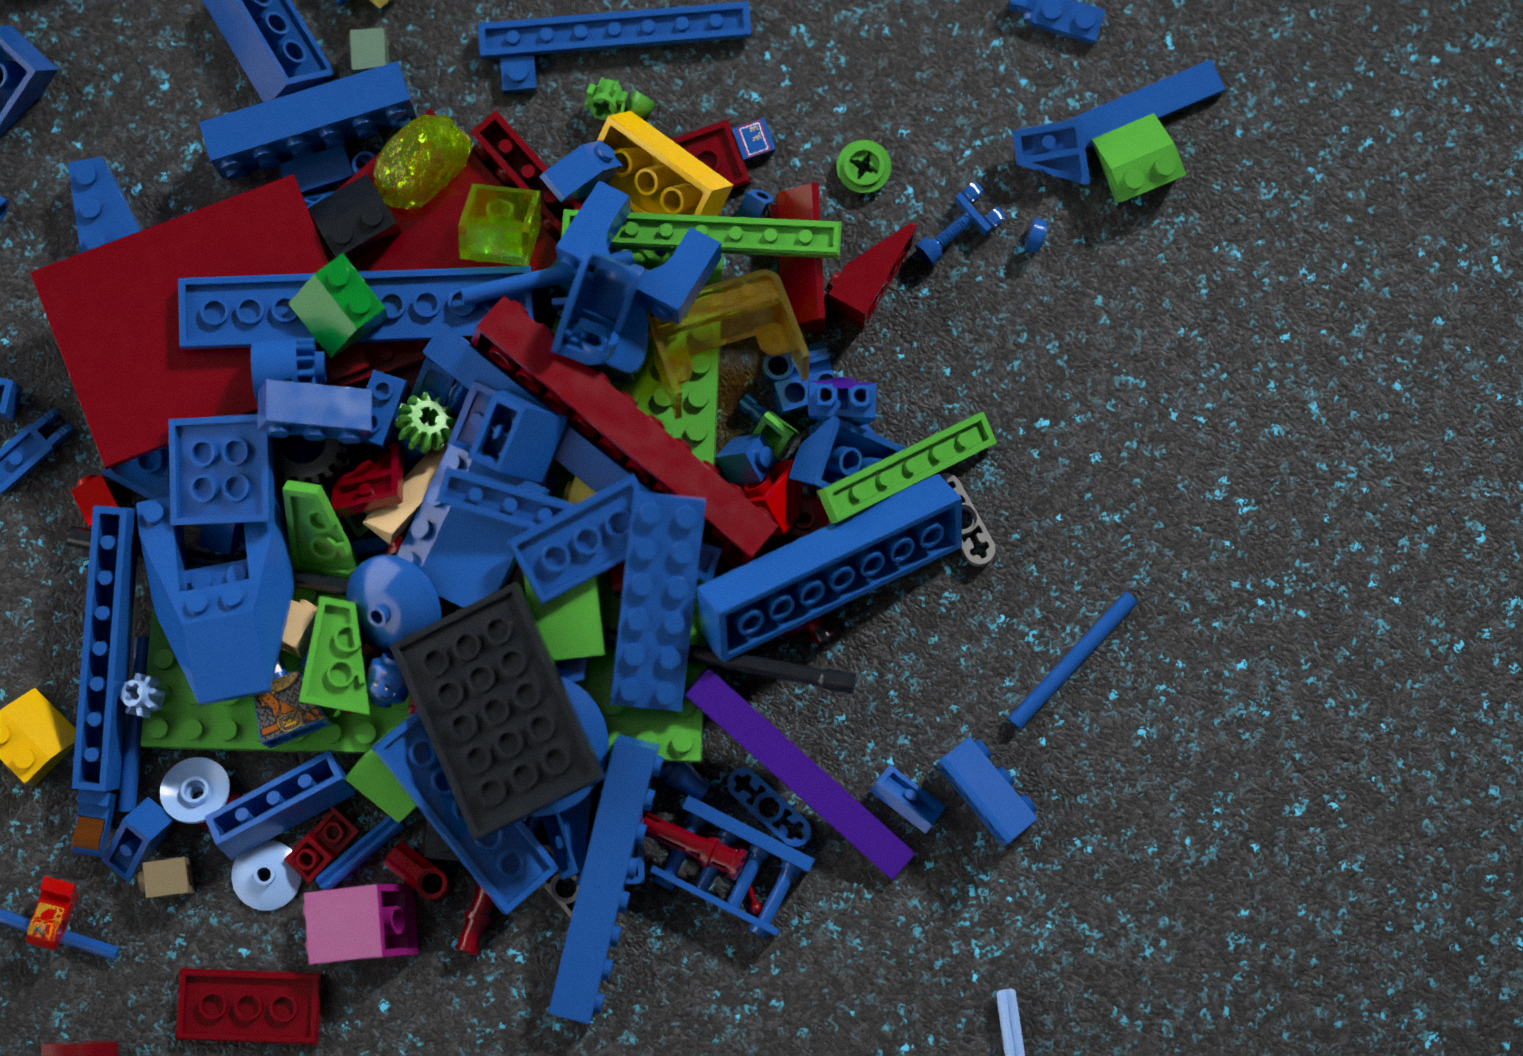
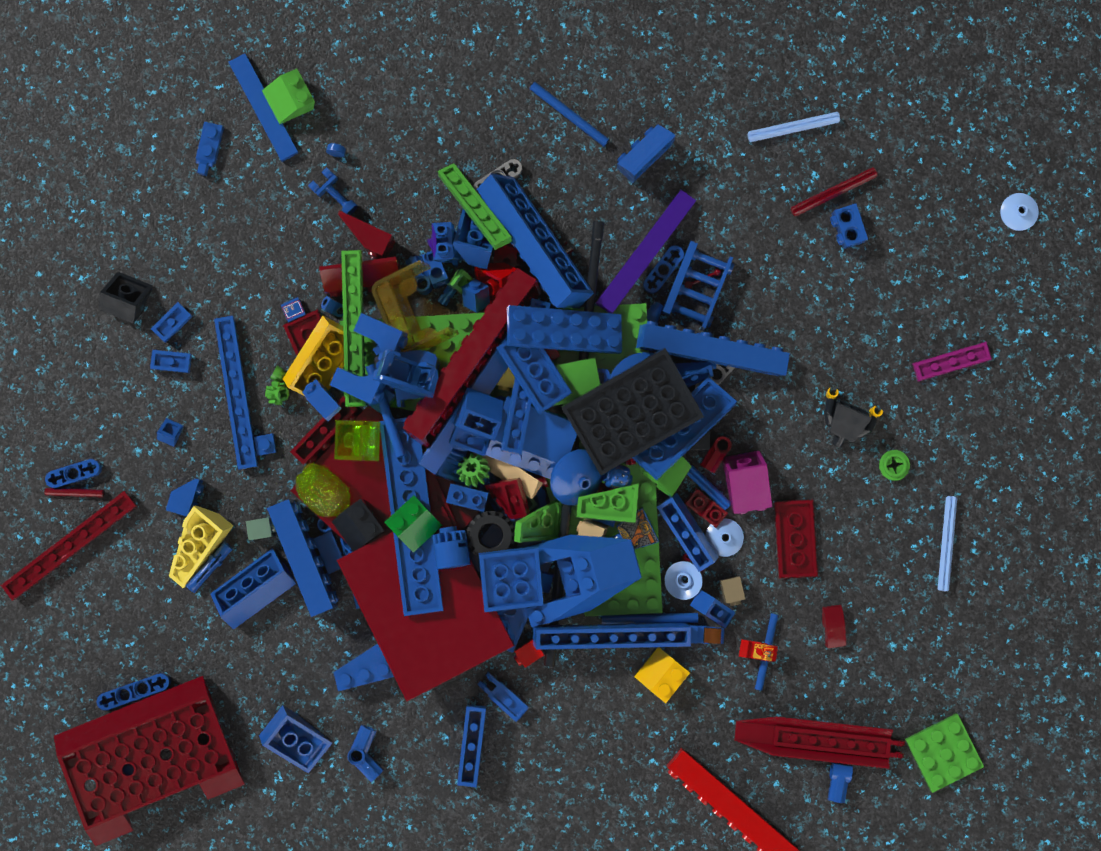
camera: 100 degrees left, 5 degrees up
(142, 695) = (636, 613): light blue gear -> none
(314, 411) = (475, 528): blue brick -> none
(476, 921) = (739, 420): dark red pin -> none
(708, 851) = (692, 296): dark red pin -> none
(856, 153) = (300, 240): bright green gear -> none
(907, 798) = (652, 195): blue plate -> none
(1053, 149) = (287, 143): blue wing -> none

